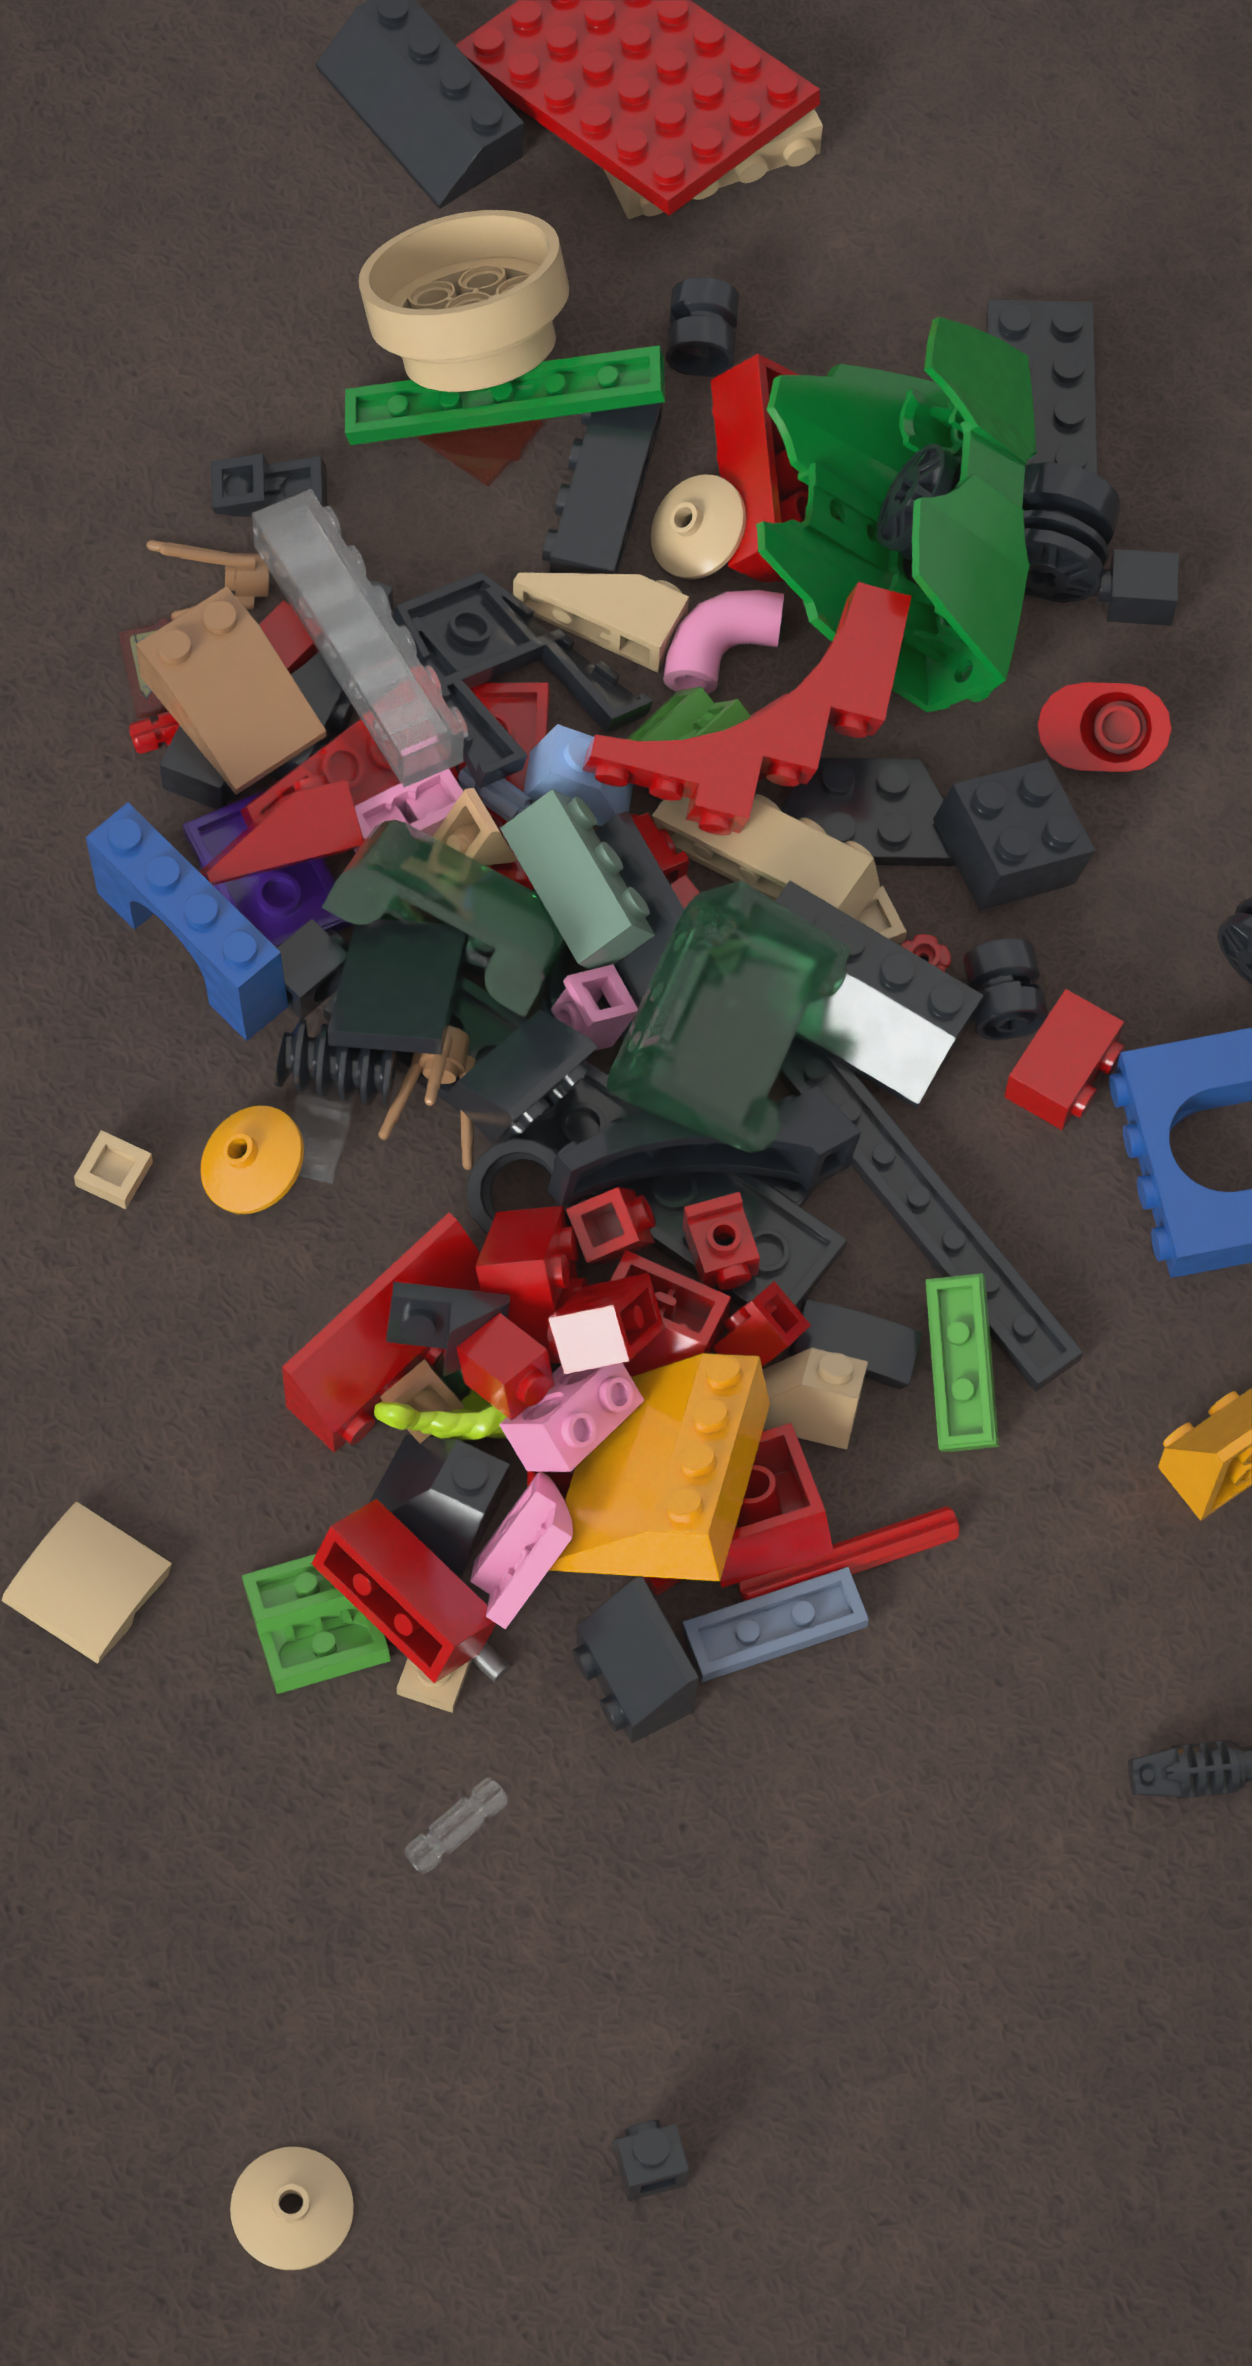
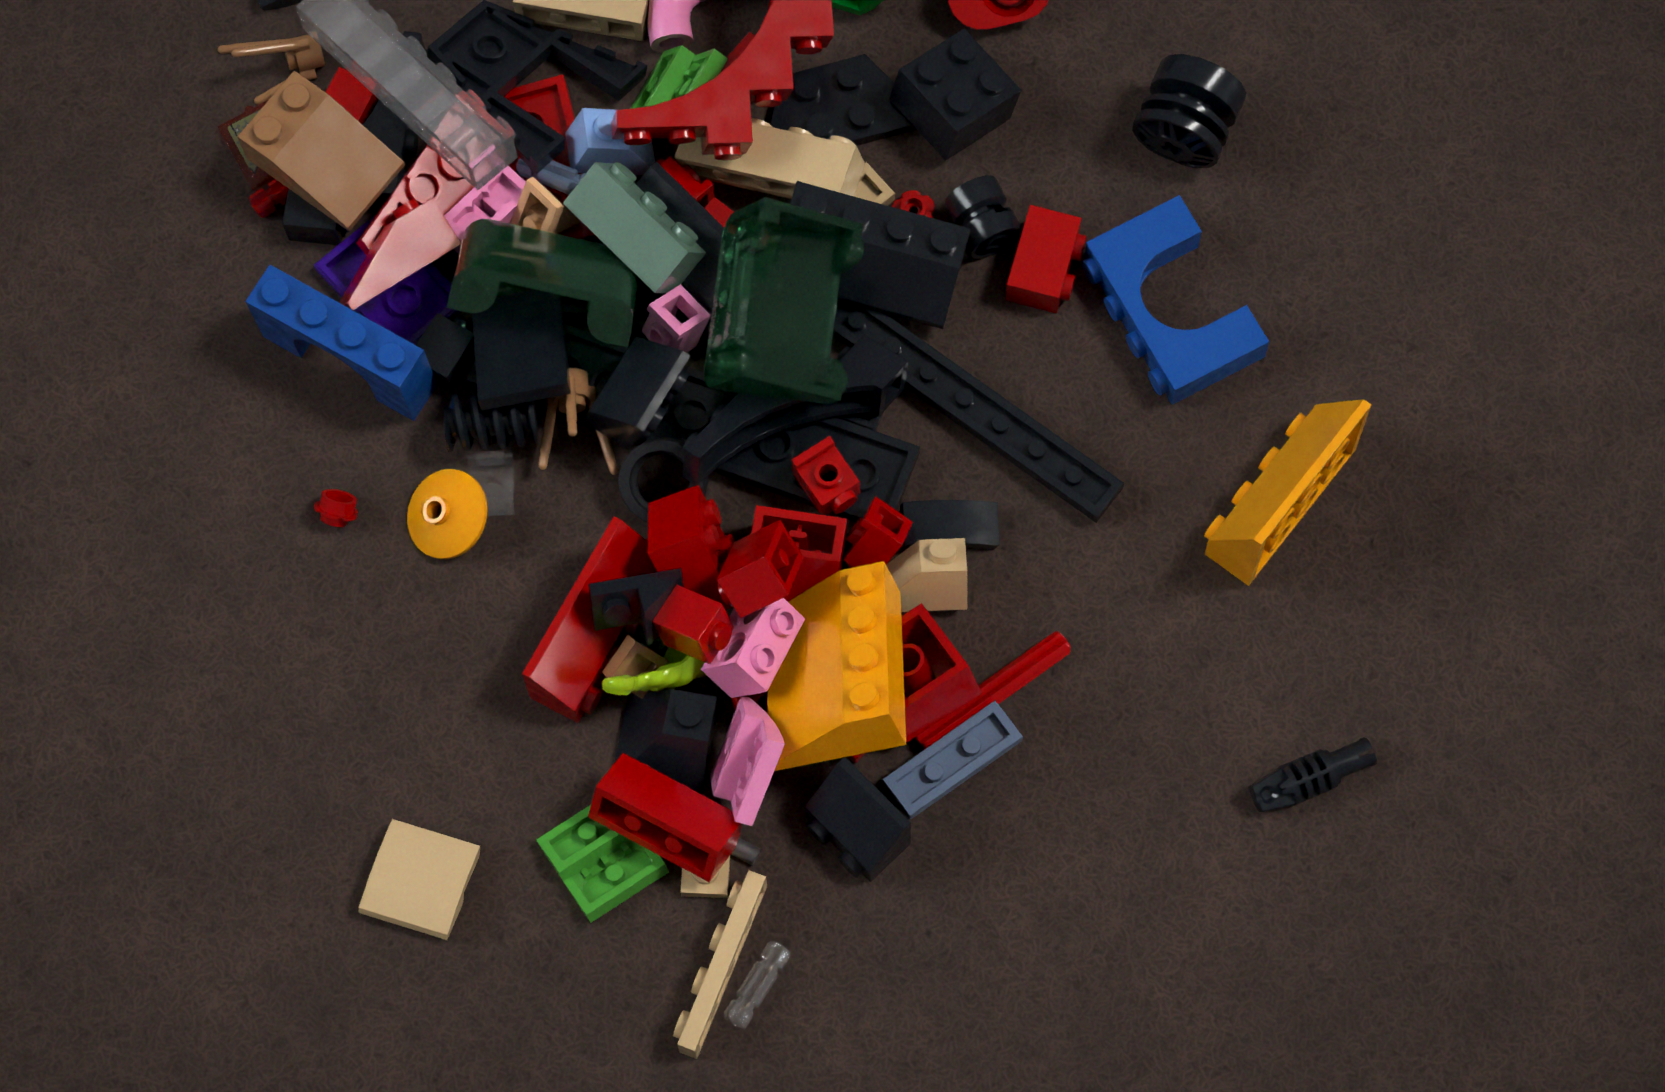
camera: 10 degrees left, 5 degrees up
(113, 1169) = (342, 552): tan plate -> none
(122, 1115) = (336, 507): none -> red plate
(434, 1767) = (711, 982): none -> tan plate
(612, 1225) = (740, 488): red brick -> none
(962, 1363) = (1035, 517): bright green tile -> none

